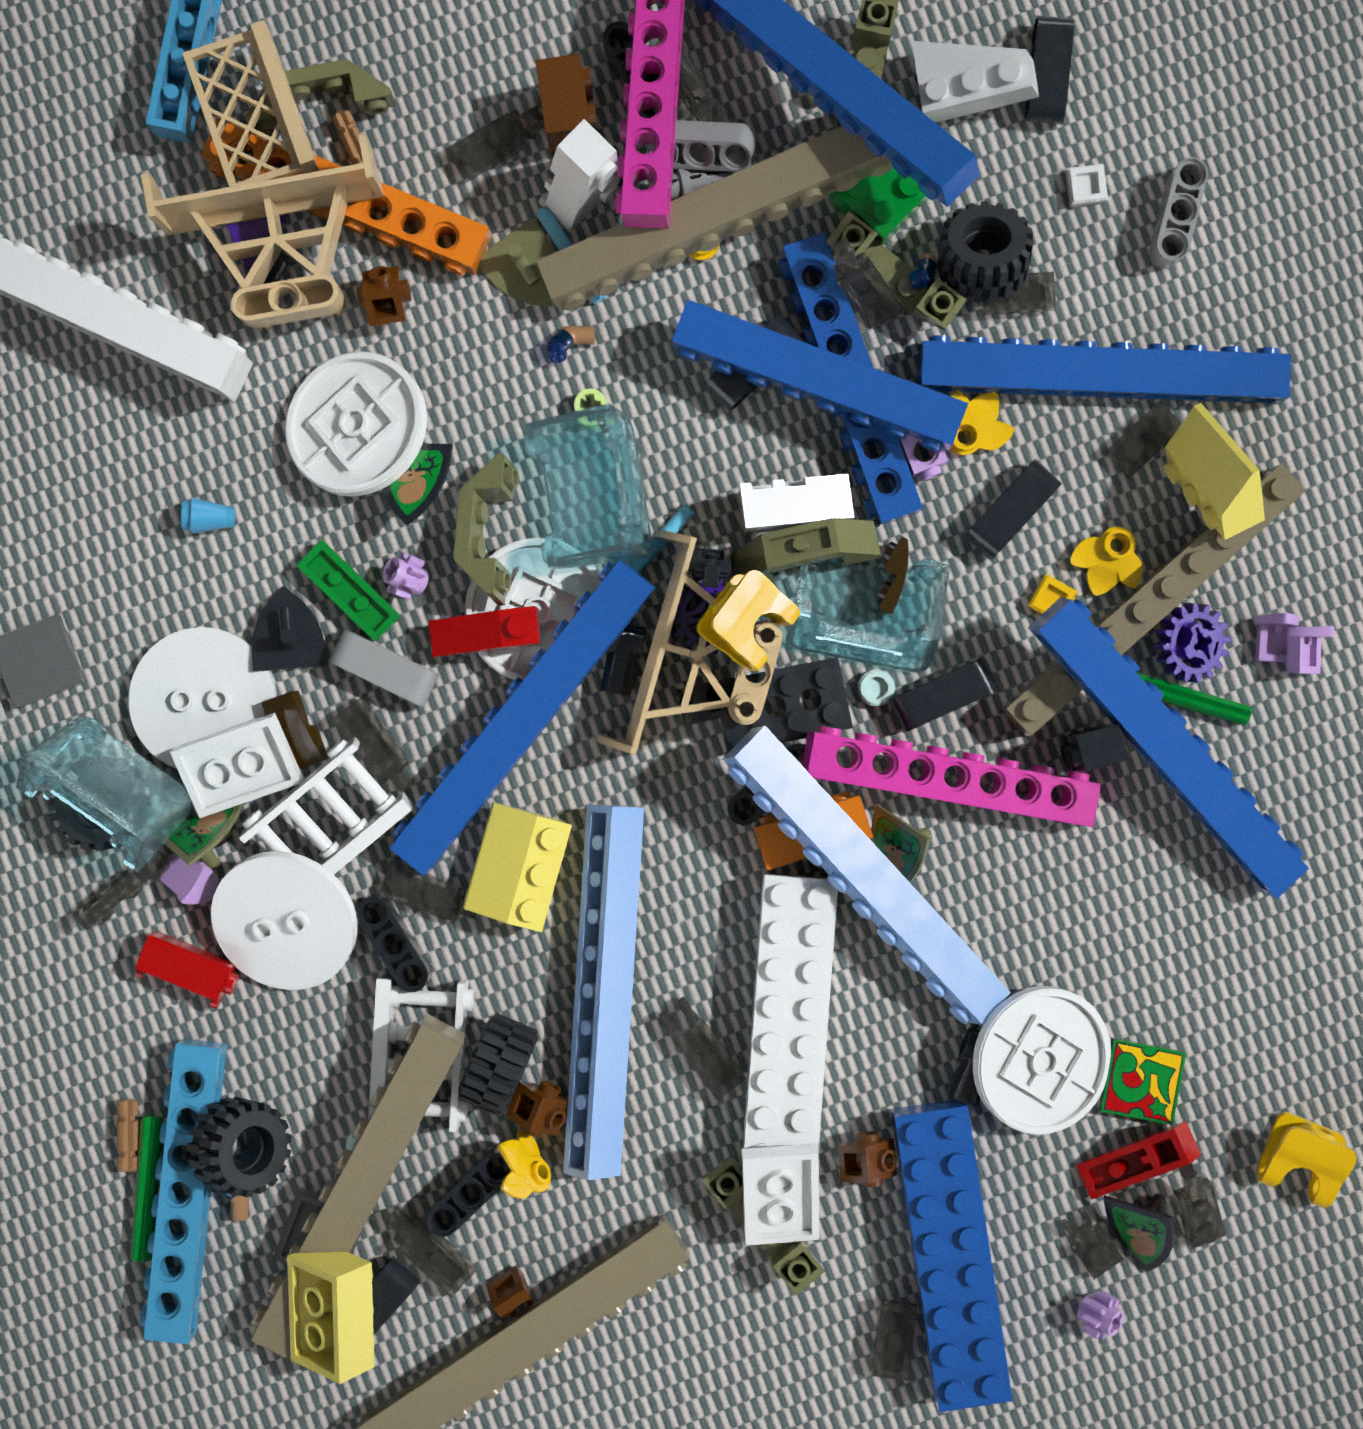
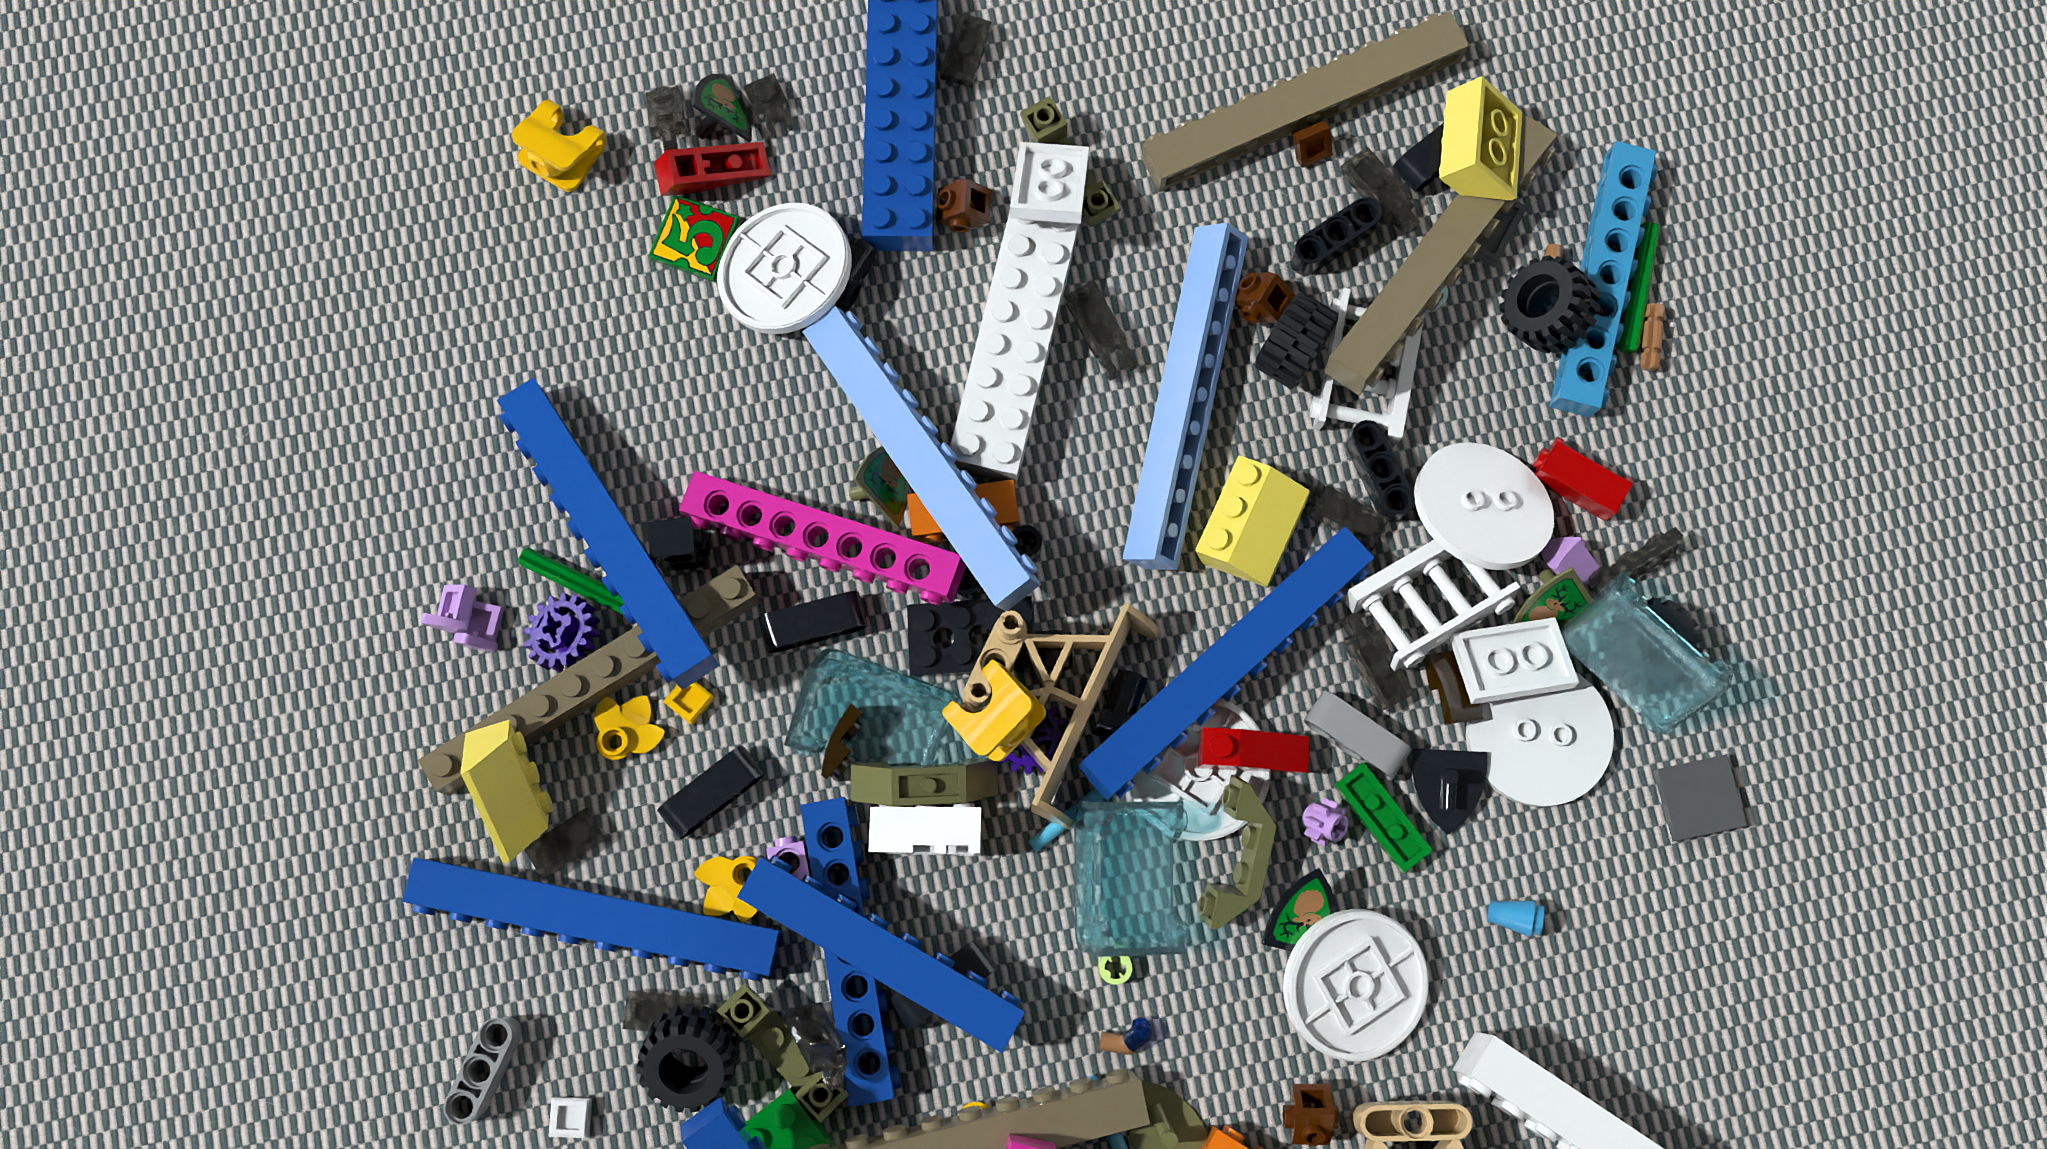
camera: 175 degrees left, 10 degrees down
(528, 1169) = (1281, 247): yellow plate -> none
(712, 565) = (1019, 779): black hinge -> none
(876, 687) = (877, 640): light aqua tile -> none
(925, 274) = (751, 1050): clear blue arm -> none
(1100, 1315) = (774, 40): lavender gear -> none

